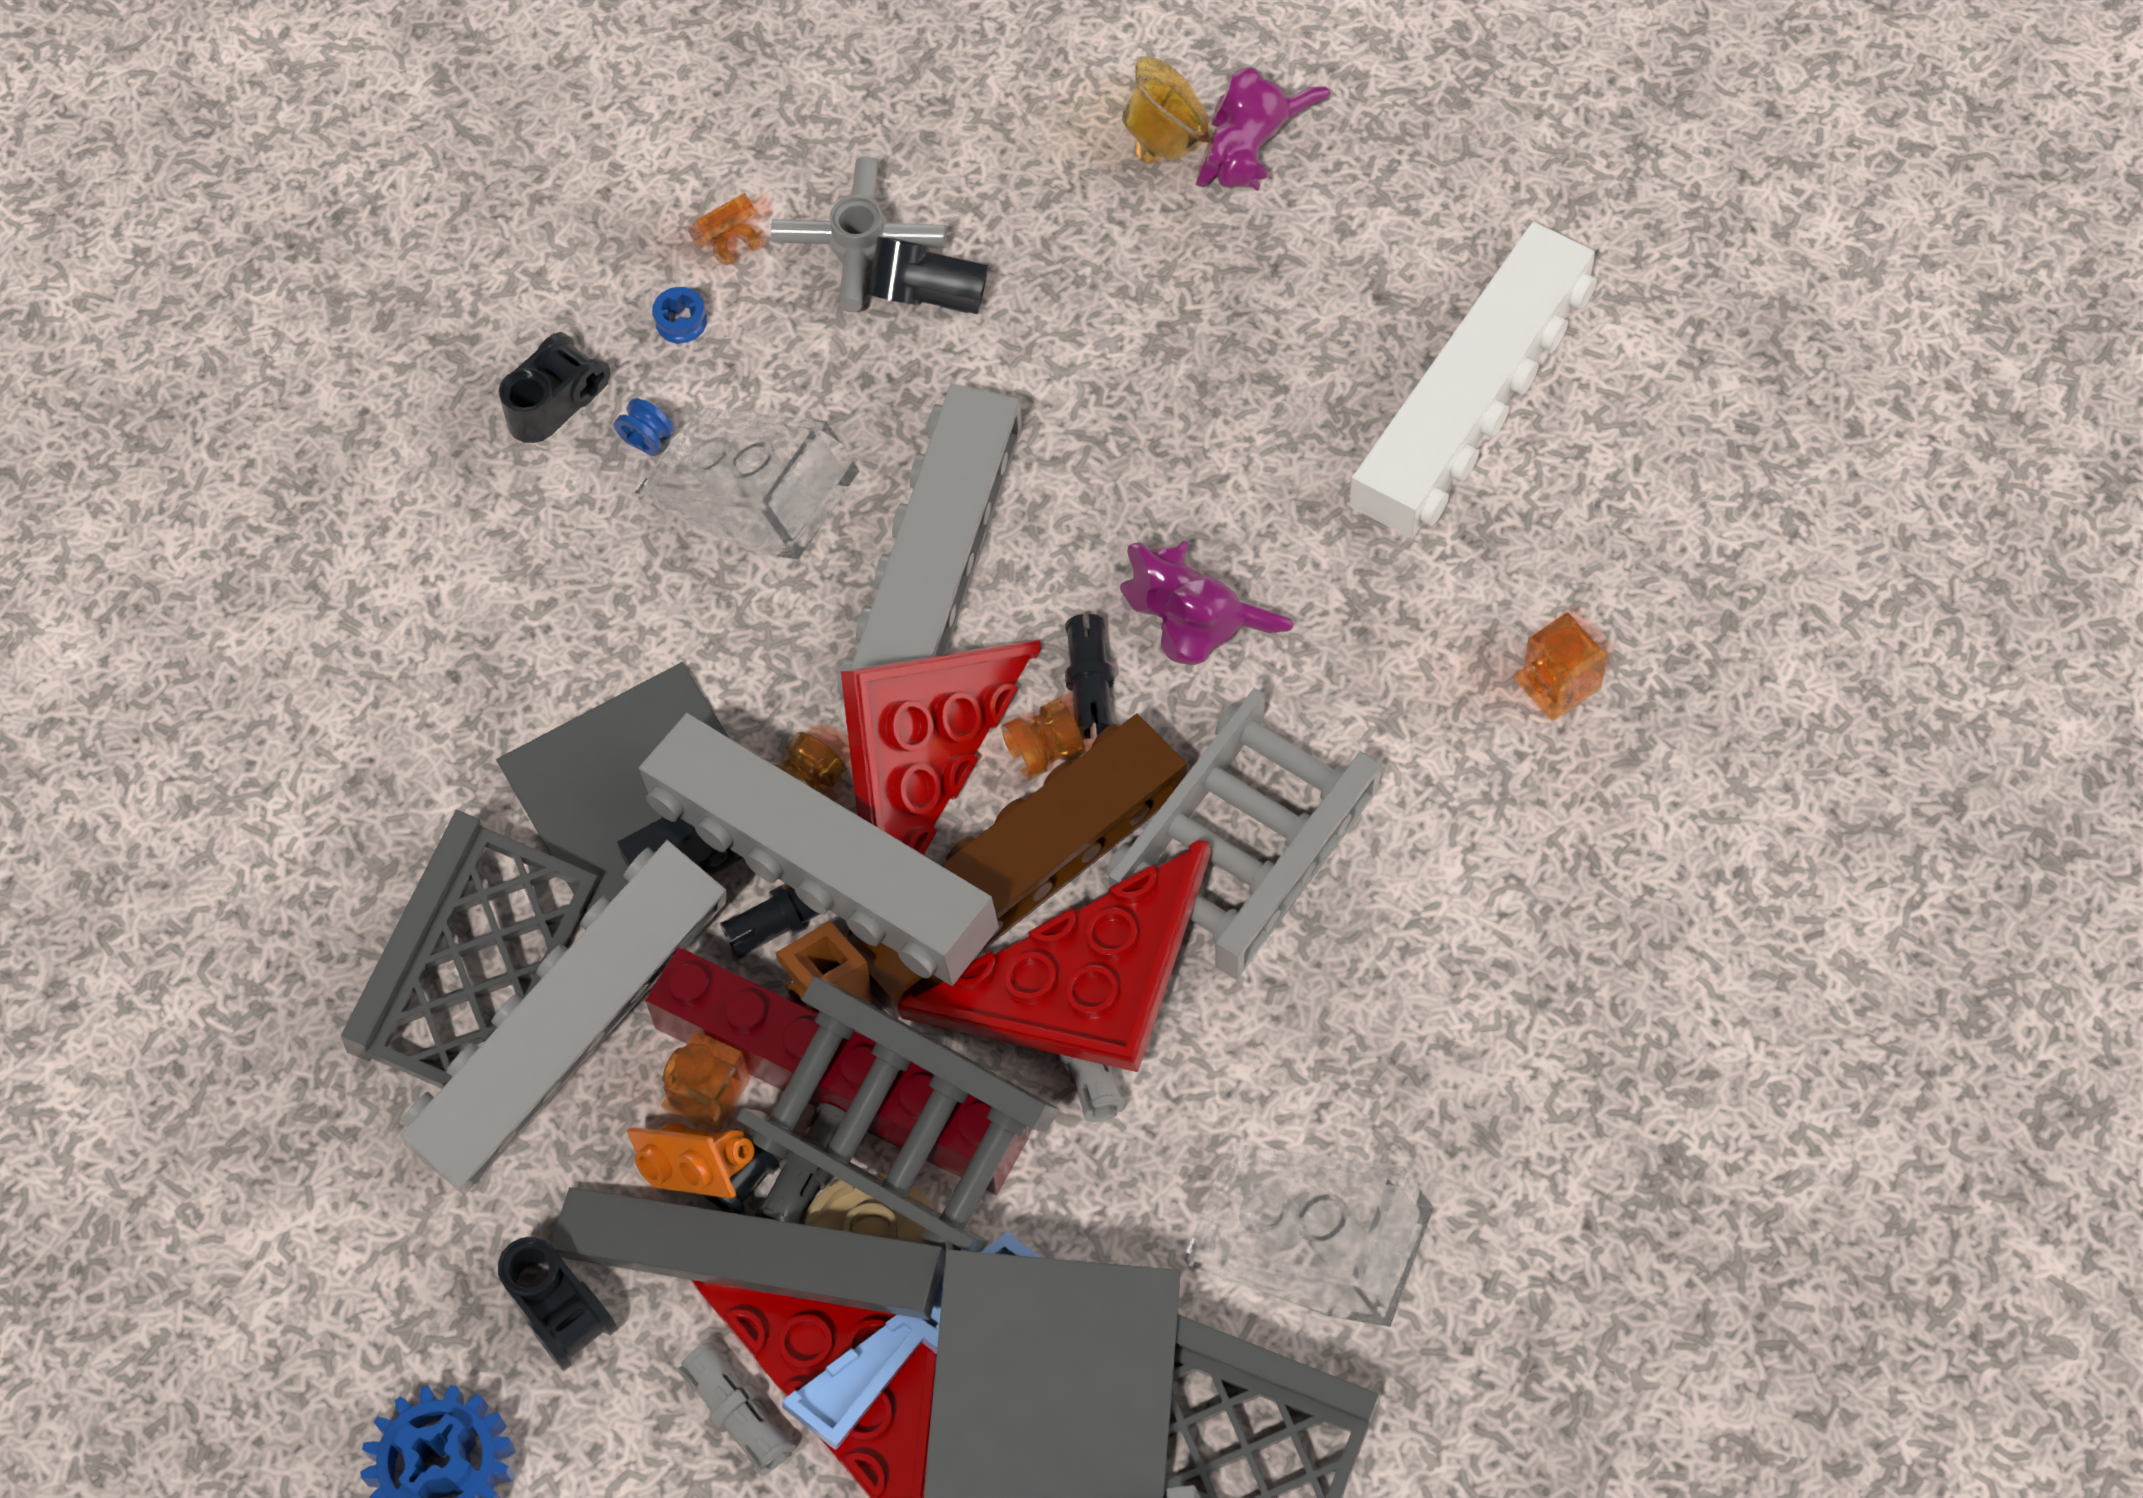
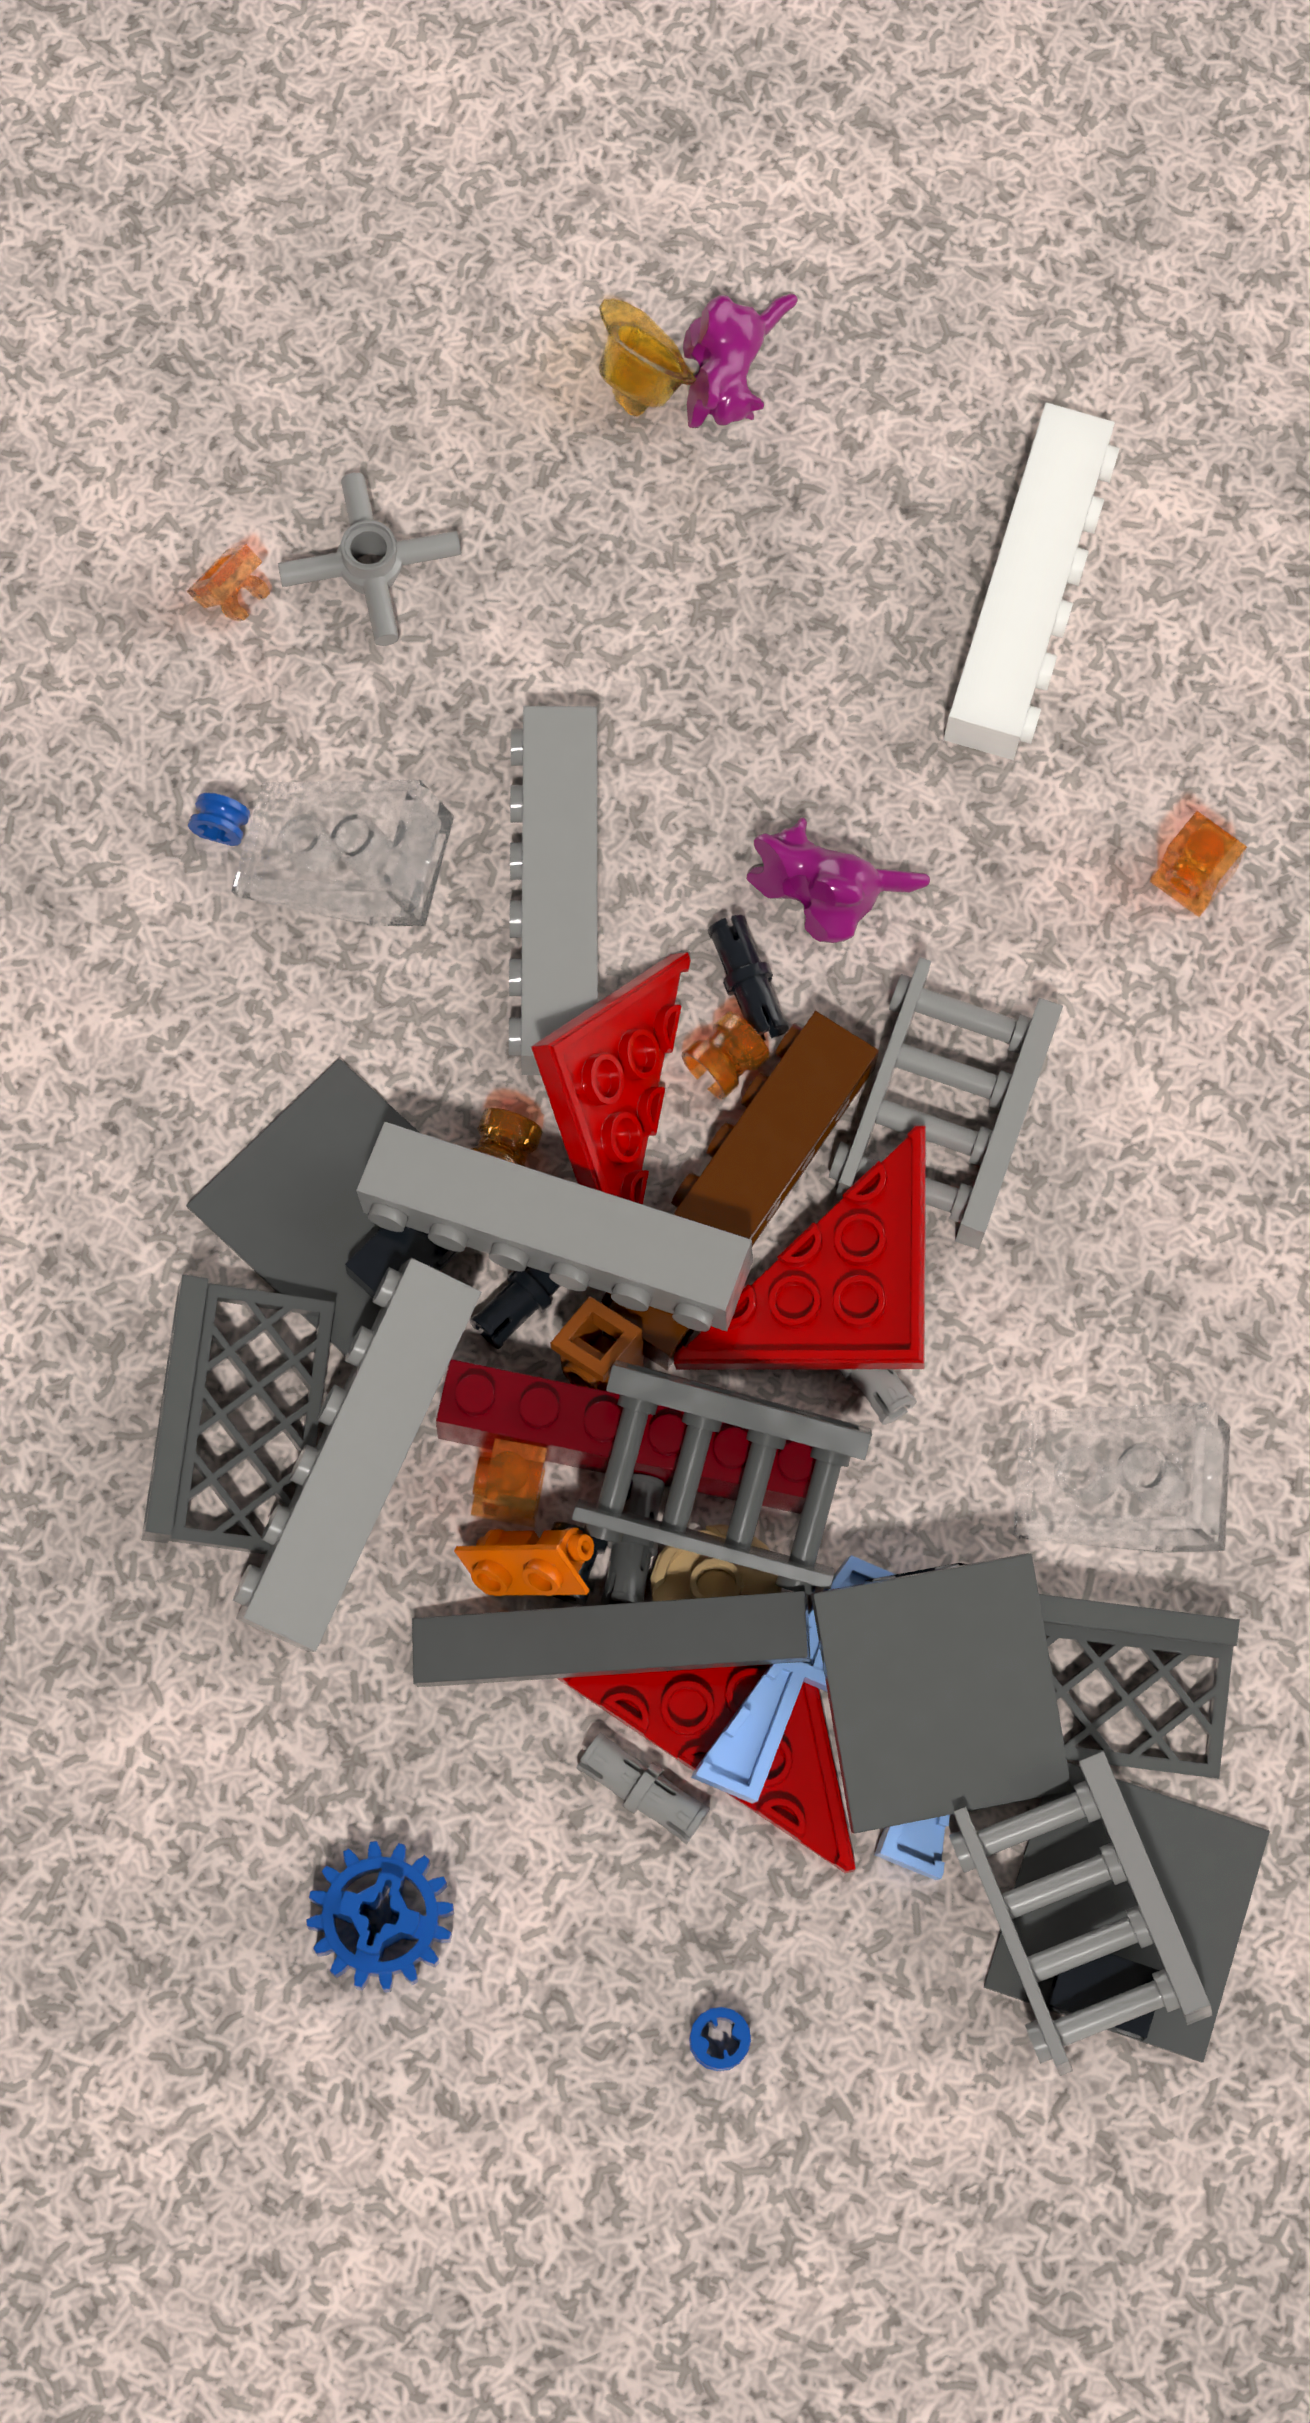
camera: 25 degrees left, 10 degrees up
(556, 385) = (112, 790): black piece -> none
(558, 1310) = (441, 1736): black piece -> none
(675, 301) = (222, 701): blue bush -> none
(912, 274) = (437, 592): black piece -> none

